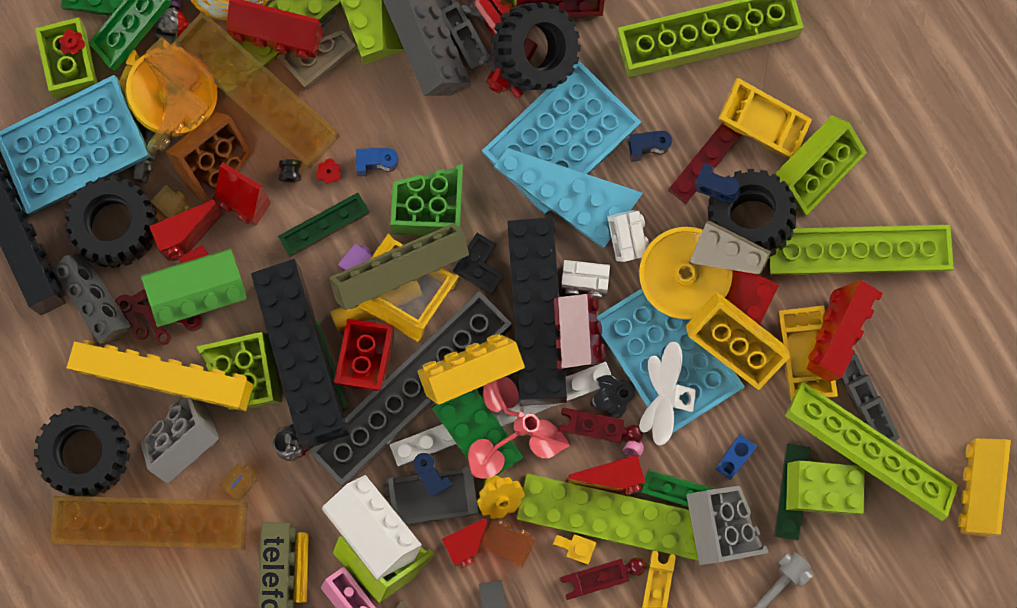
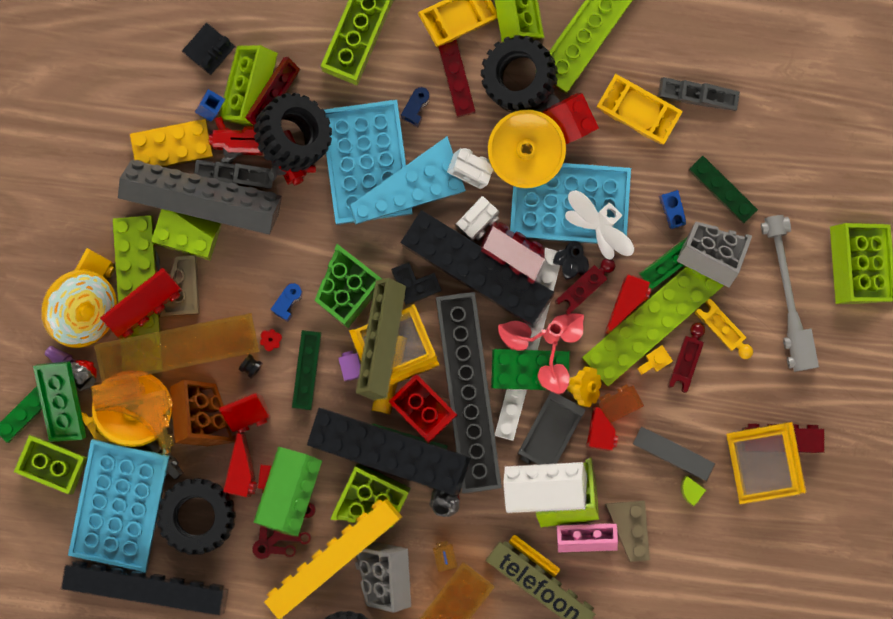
camera: 50 degrees left, 5 degrees up
(77, 42) = (49, 453): red plant -> none
(91, 298) = (241, 568): dark grey brick -> none
(170, 202) = (213, 465): clear yellow brick -> none
(425, 467) = (529, 422): dark blue leg -> none
(470, 368) = (488, 342): yellow brick -> none
(633, 448) = (618, 273): bright pink hinge -> none
(717, 186) = (485, 83): dark blue leg -> none
(728, 250) = (535, 109): dark tan wing -> none
(737, 341) = (599, 149): yellow brick -> none
(825, 488) = (738, 166): lime brick -> none
(841, 329) = (641, 74): red wedge -> none
(872, 451) = (736, 117): lime plate -> none
(984, 487) = (813, 61): yellow slope -> none

